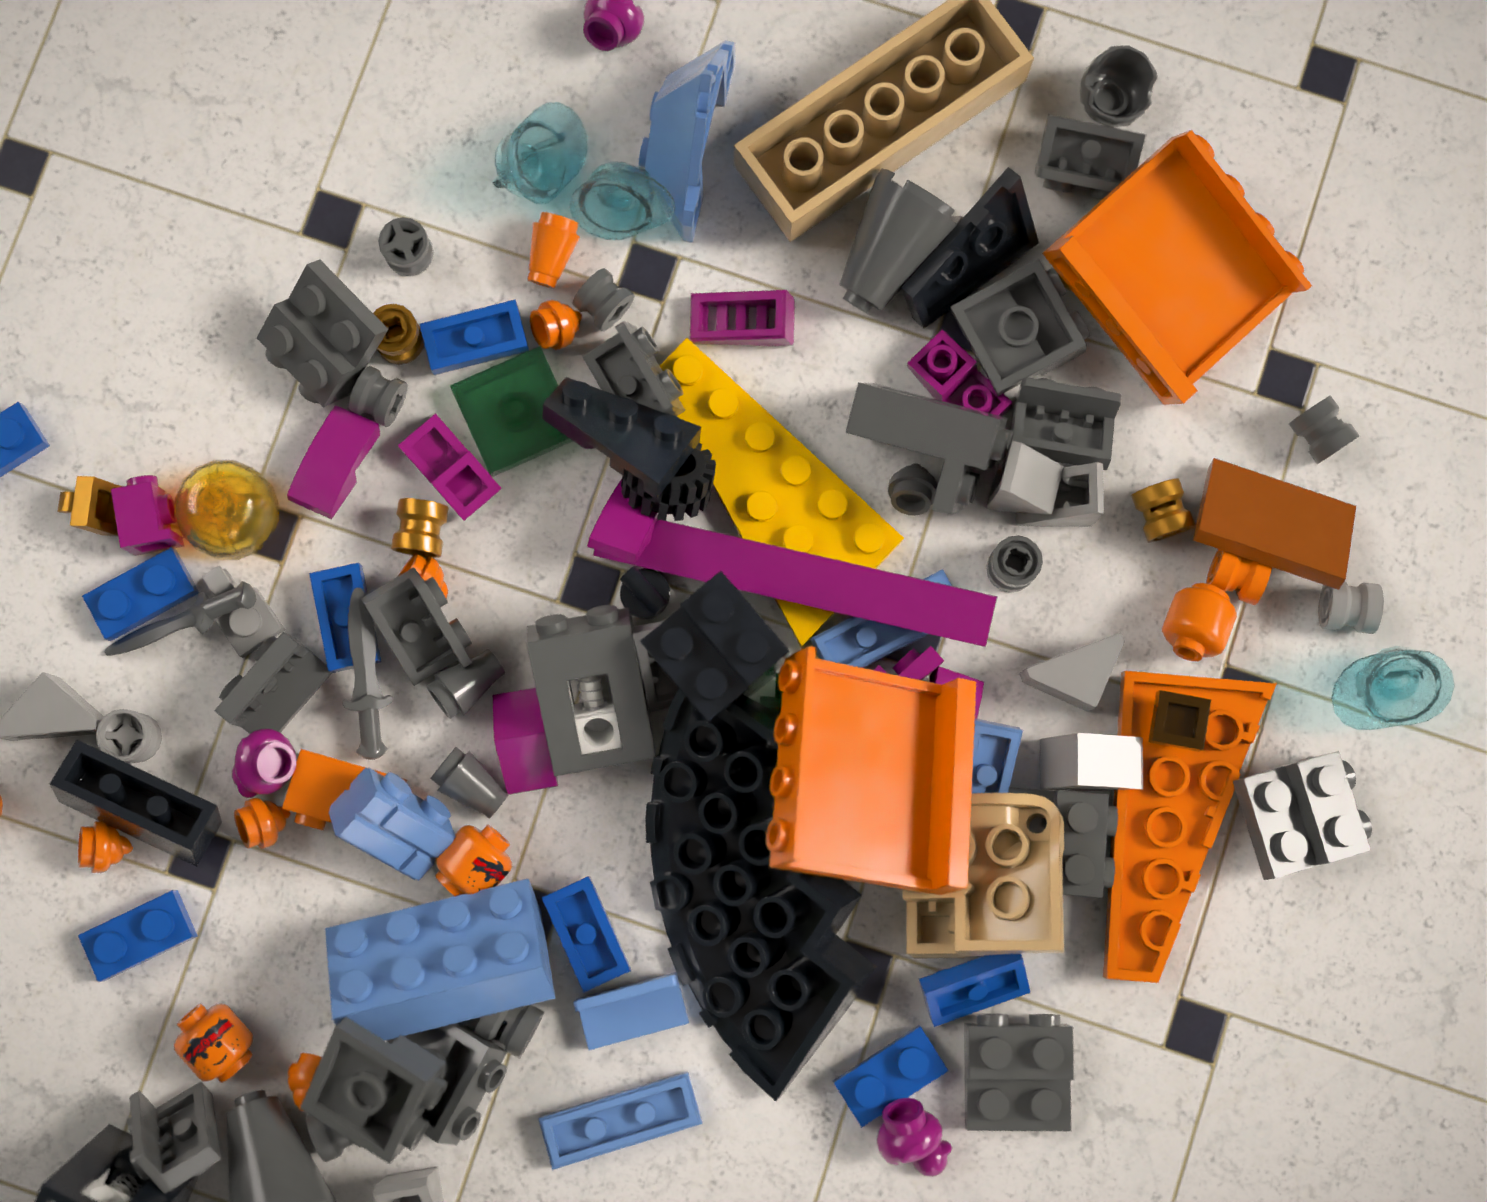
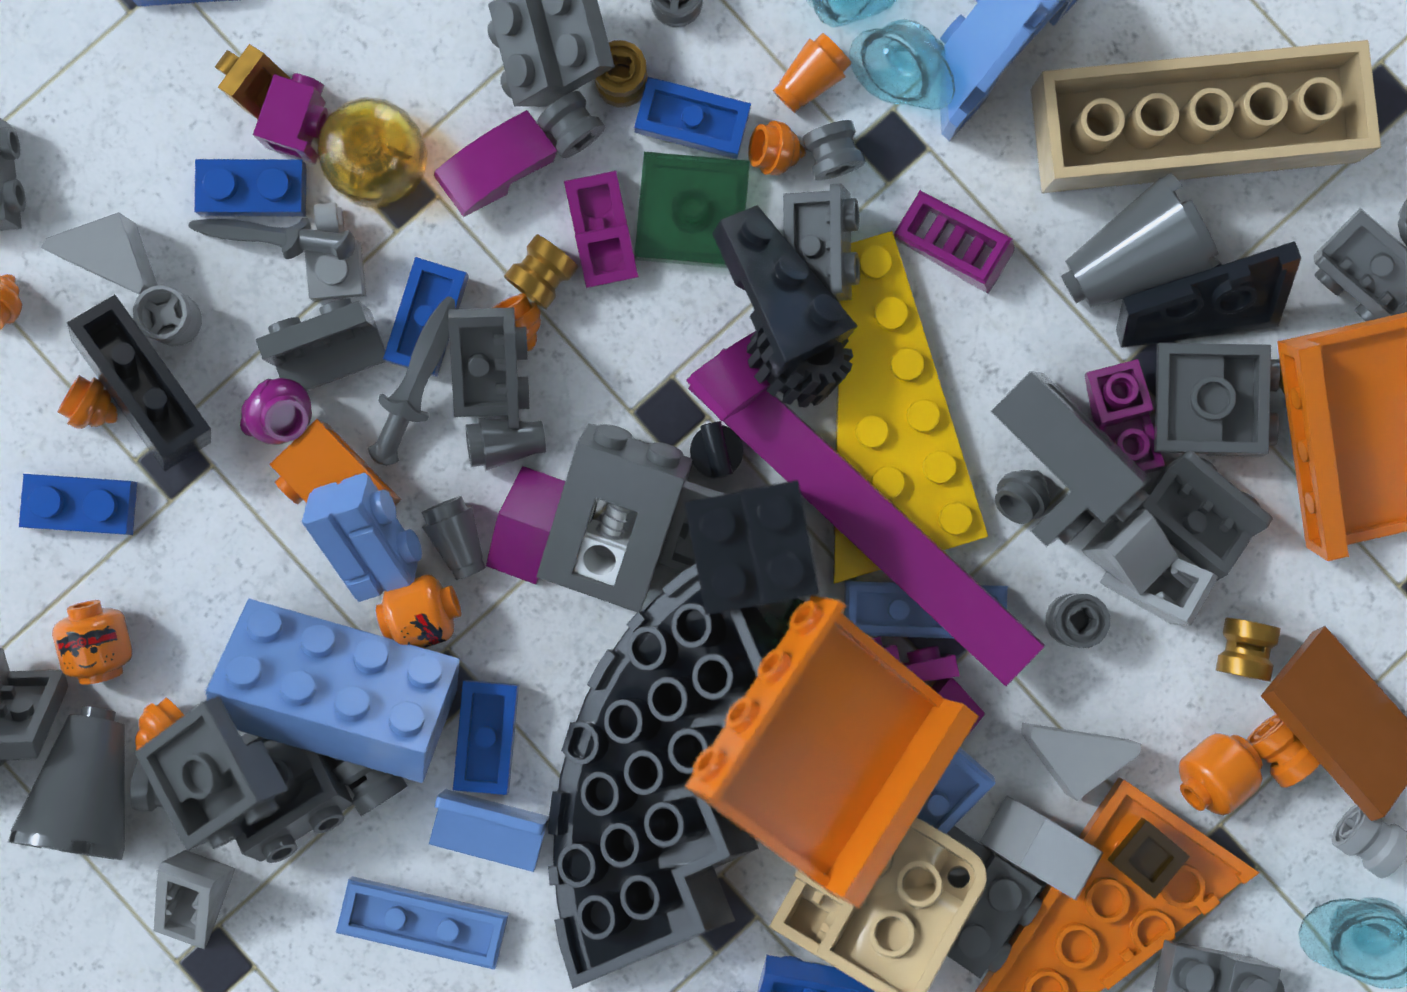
camera: 25 degrees right, 5 degrees up
(260, 822) = (244, 464): orange plate -> none

